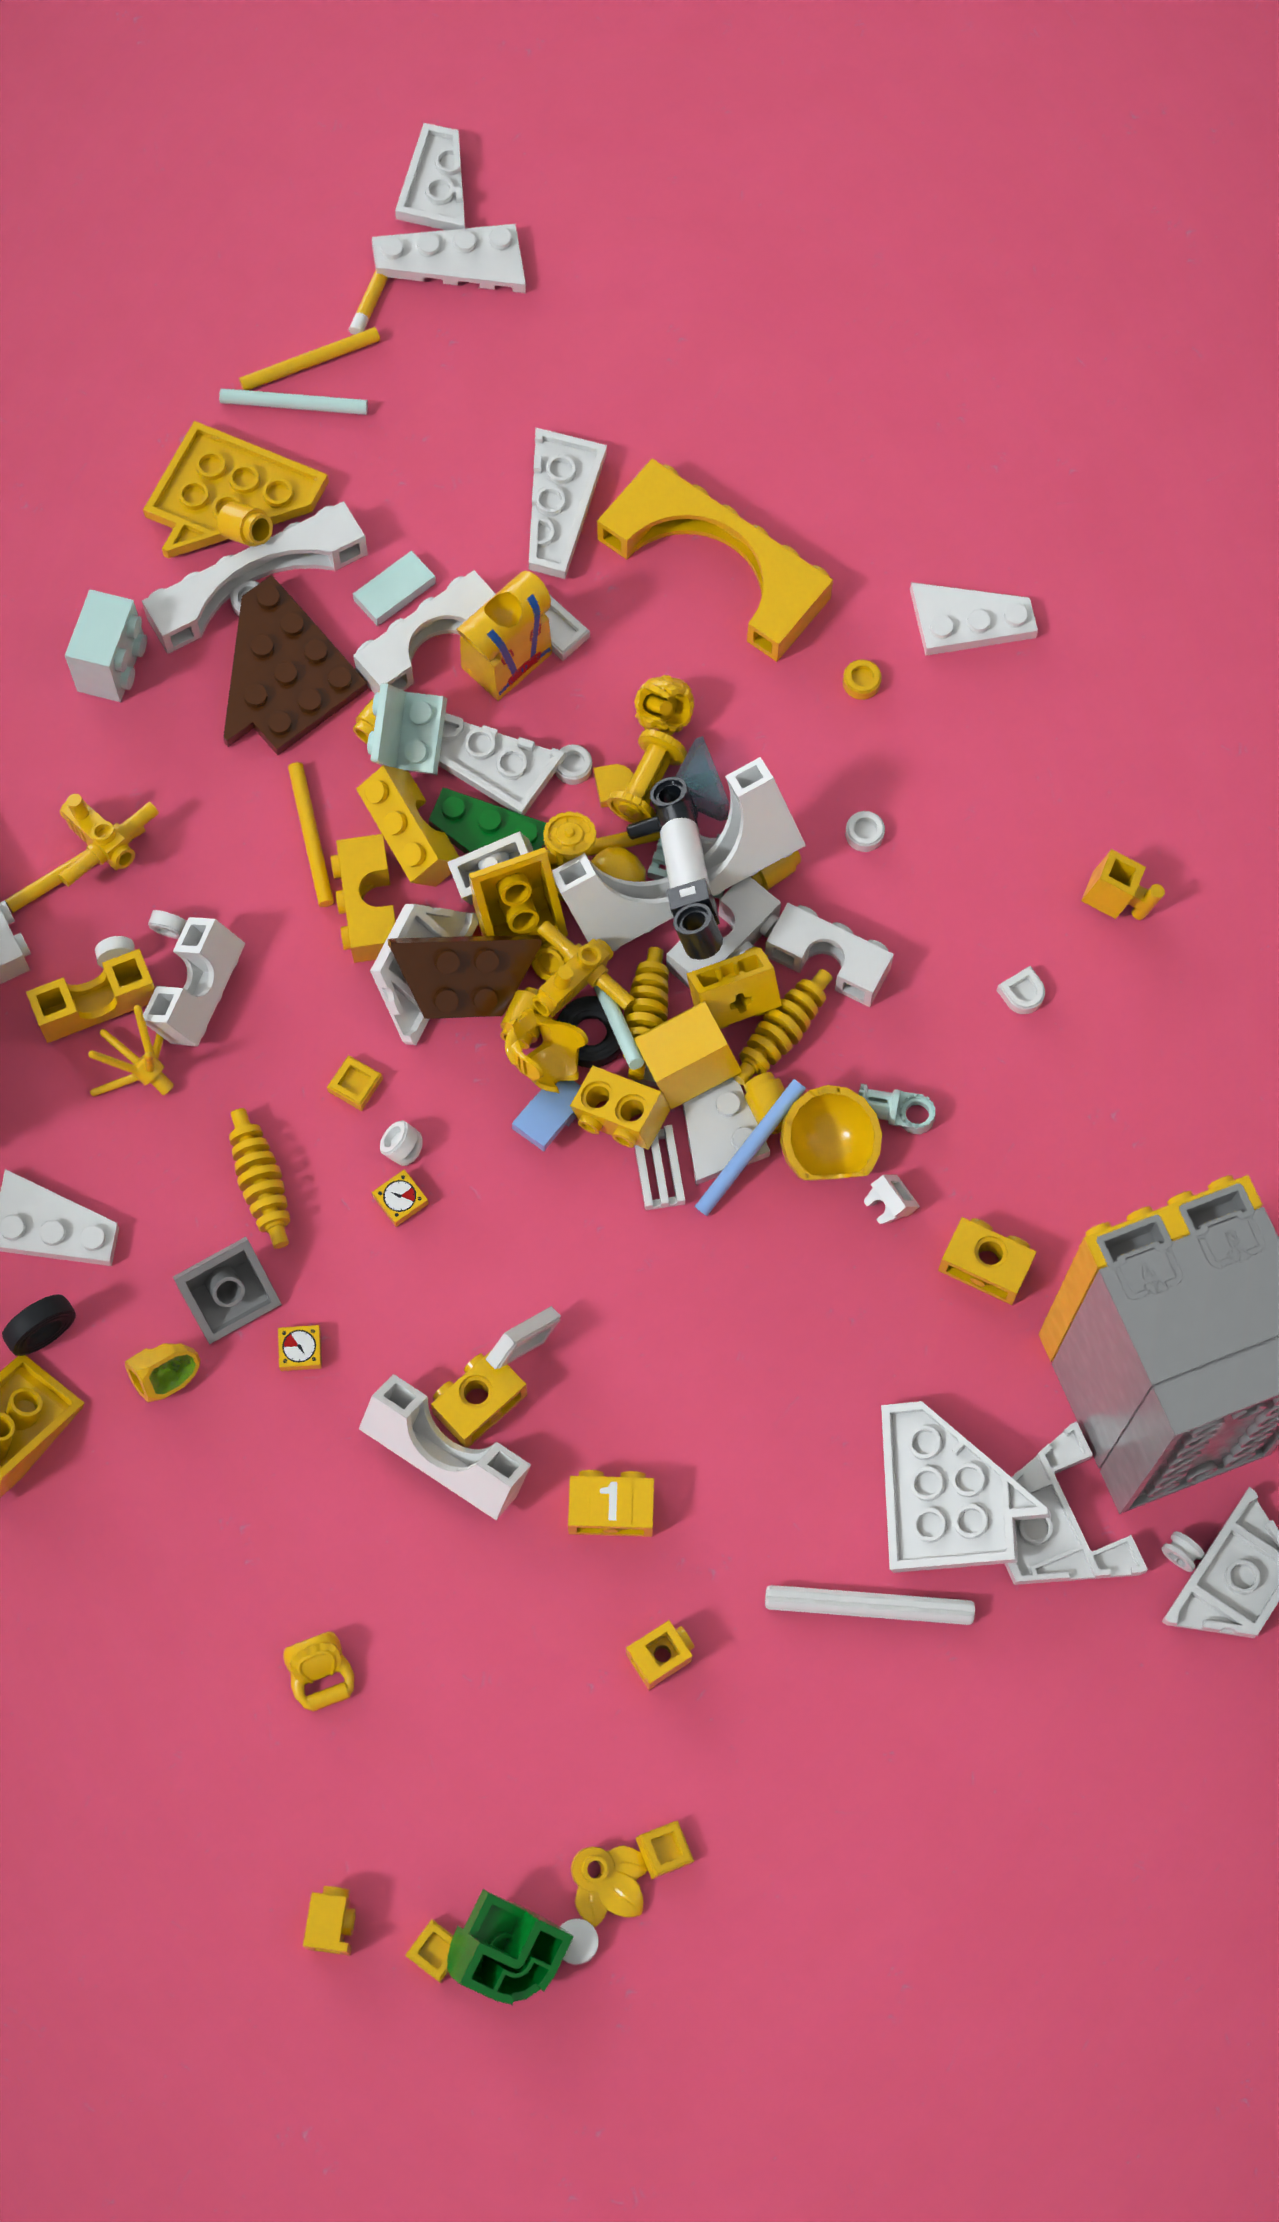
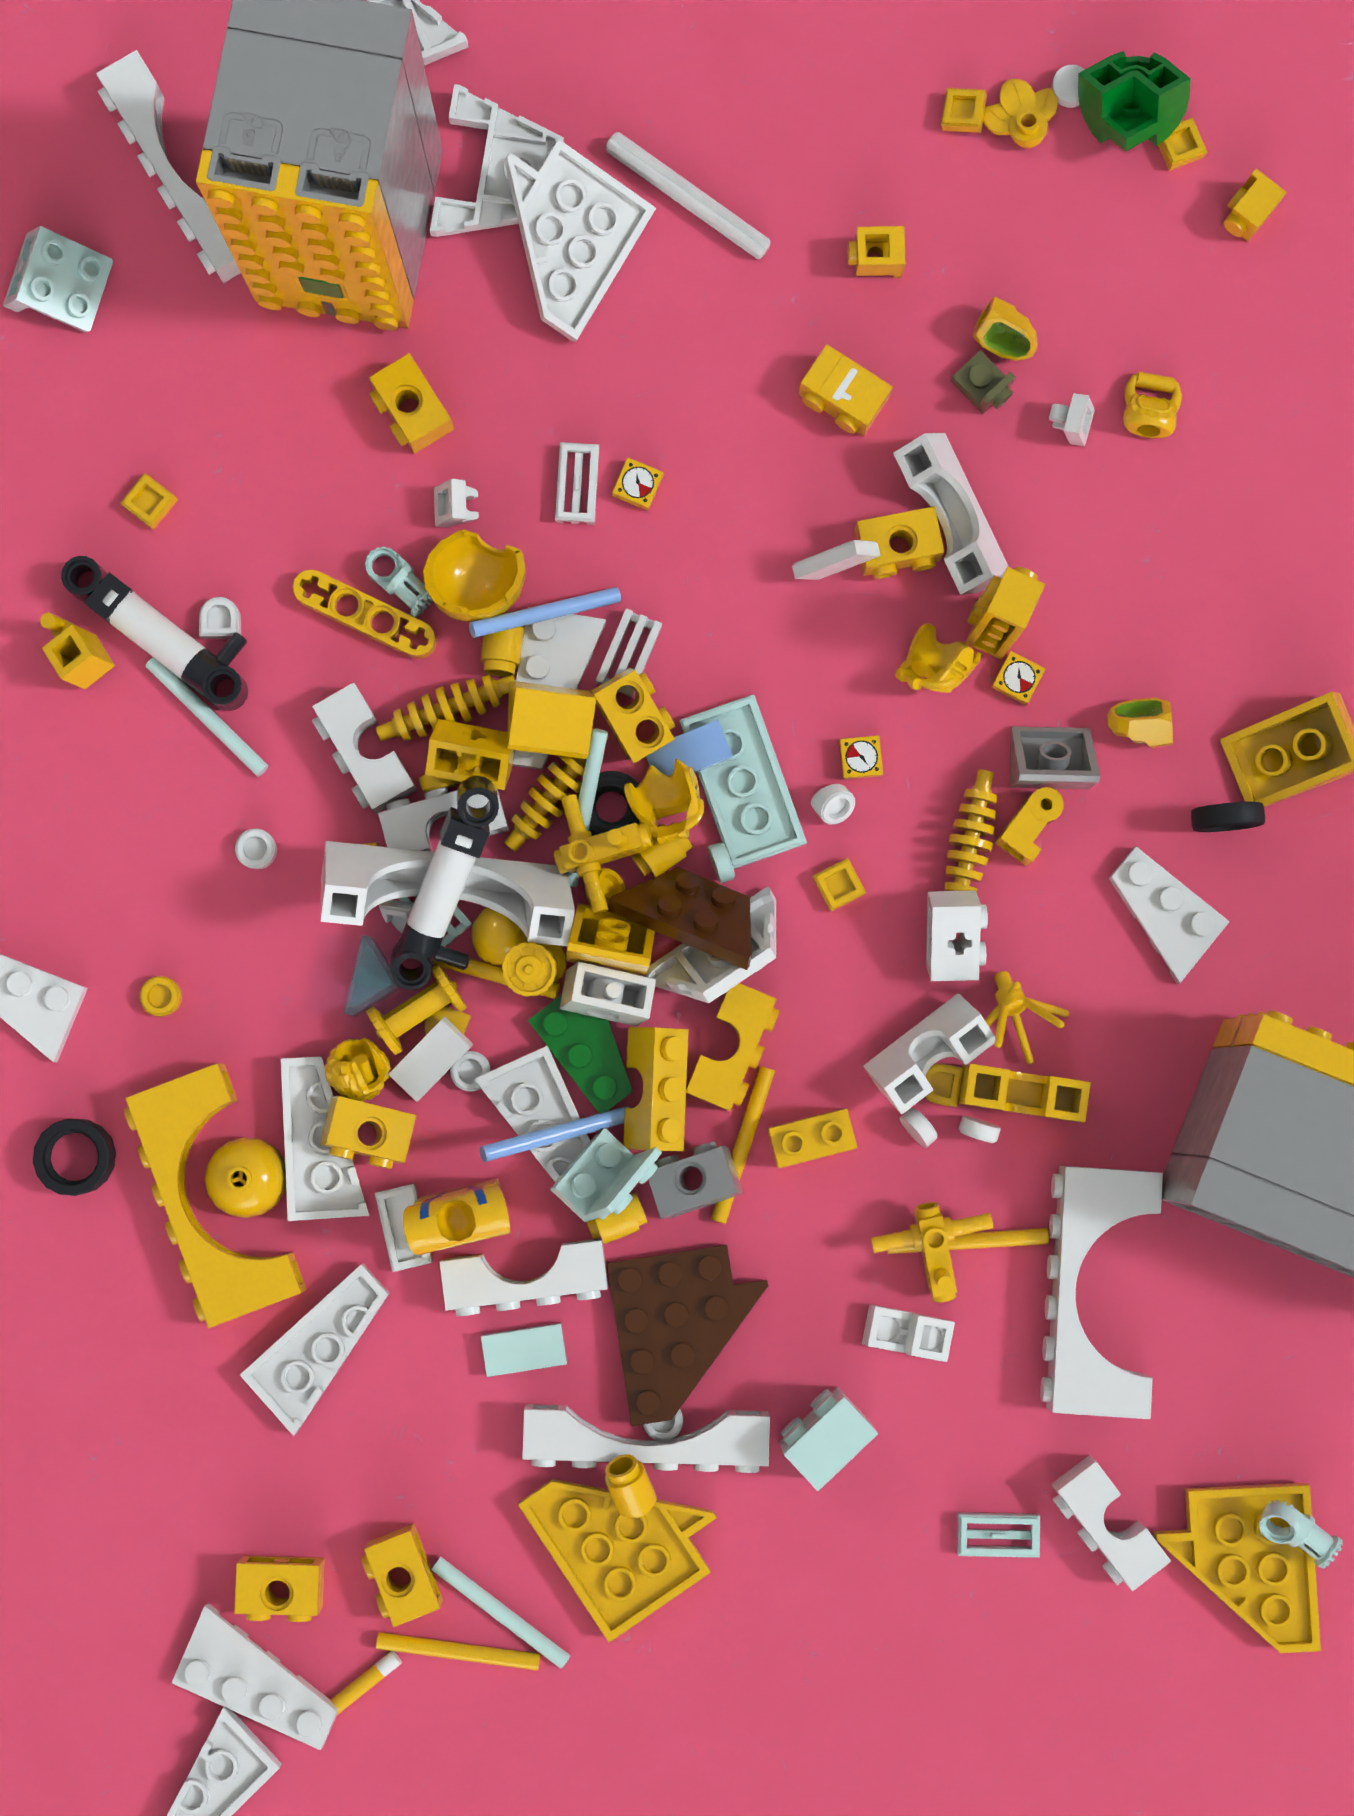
camera: 155 degrees left, 15 degrees up
(84, 771) = (908, 1333): none -> white slope
(168, 970) = (945, 1084): none -> yellow tile
(218, 1219) = (1035, 813): none -> yellow leg
(228, 1086) = (951, 914): none -> white brick
(255, 864) = (812, 1138): none -> yellow brick
(338, 756) = (718, 1182): none -> light grey brick
(343, 1359) = (1004, 610): none -> yellow brick
(380, 1321) = (940, 663): none -> yellow helmet
(383, 1609) = (1075, 419): none -> white tile
(394, 399) = (402, 1550): none -> yellow brick
(467, 341) = (302, 1576): none -> yellow brick
(467, 1037) = (721, 862): none -> light aqua tile
(470, 740) = (552, 1134): none -> light blue bar
(477, 1112) = (749, 790): none -> light aqua tile
(488, 1595) = (983, 383): none -> olive bracket
(496, 1651) = (1005, 331): none -> yellow rock
(602, 656) = (391, 1126): none -> yellow brick
(610, 749) = (430, 1059): none -> white tile
(656, 633) = (315, 1181): none -> white wing
(700, 586) = (264, 1175): none -> yellow cylinder
(744, 1315) = (638, 484): none -> tile
(815, 1315) = (575, 516): none -> white tile
(844, 500) = (43, 1151): none -> black tyre
(904, 1059) = (367, 609): none -> yellow beam
(979, 909) = (208, 717): none -> light aqua bar
(1112, 948) = (158, 634): none -> piece
(1151, 1052) = (149, 501): none -> yellow tile

